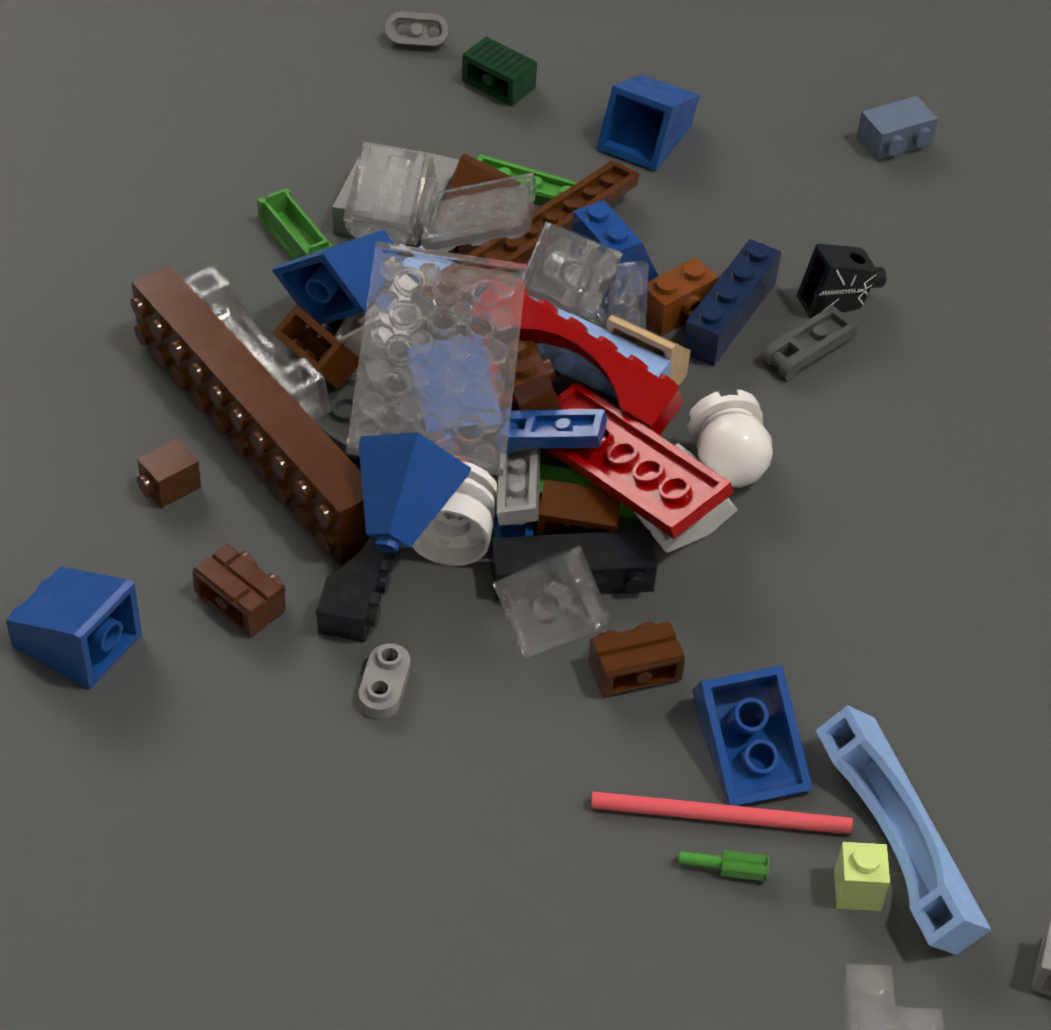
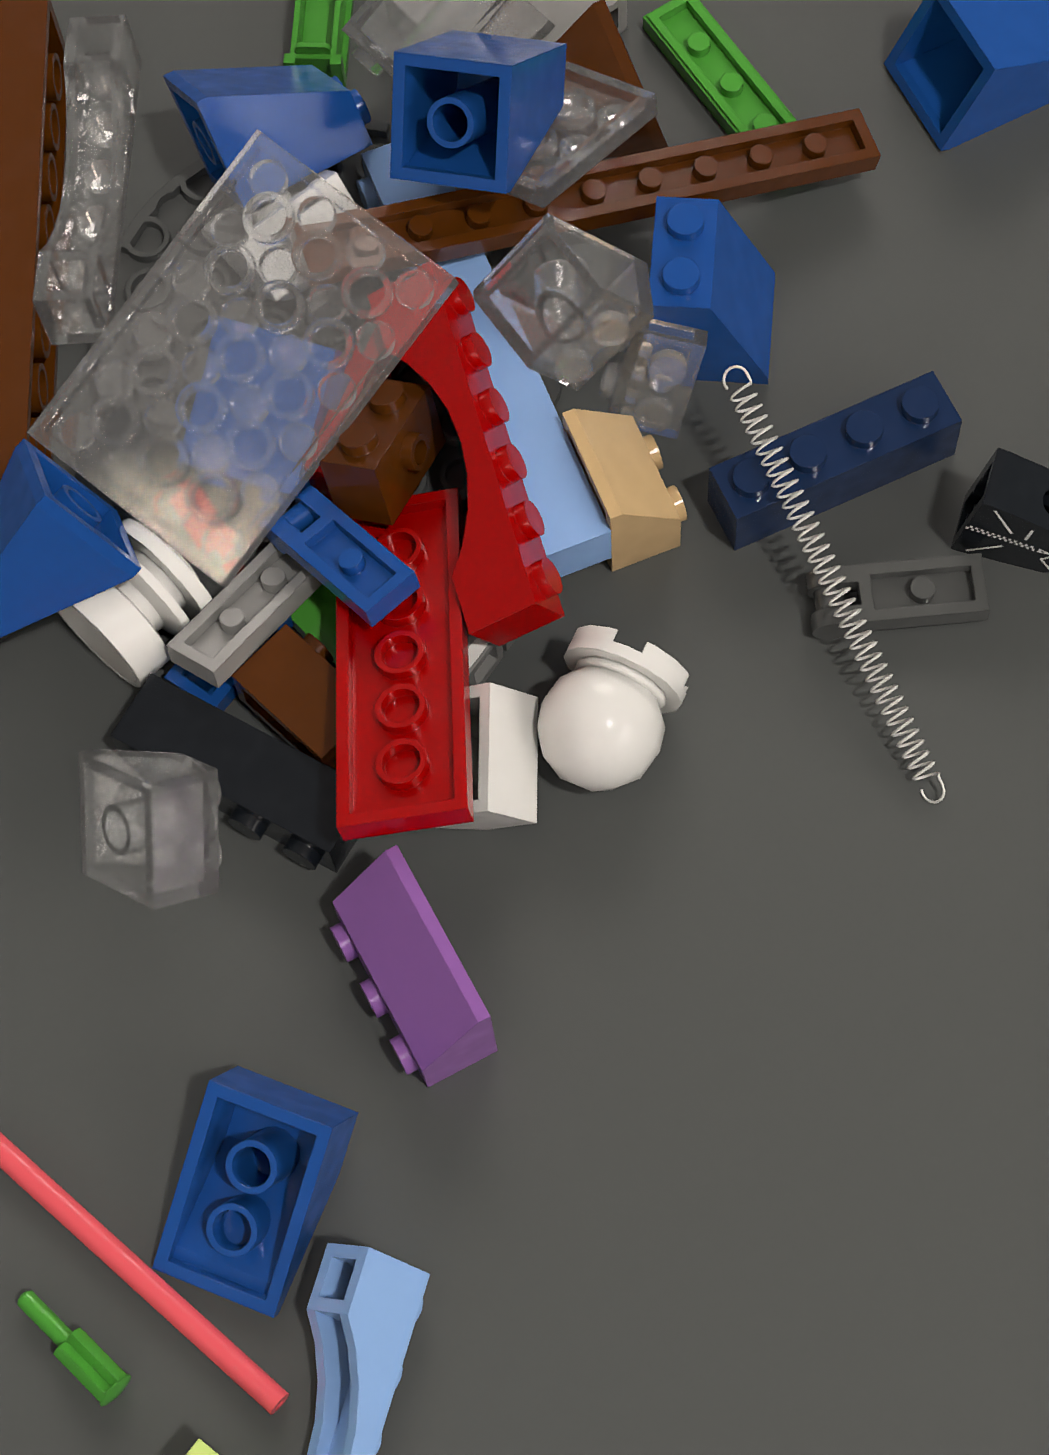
camera: 45 degrees right, 20 degrees up
(317, 346) = (144, 214): reddish brown brick -> none
(464, 202) = (473, 108): none -> blue slope
(636, 658) = (204, 969): reddish brown brick -> none
(677, 295) = (789, 394): dark orange brick -> none
(745, 591) = (412, 971): none -> medium lavender slope
(788, 336) = (838, 580): none -> white piece

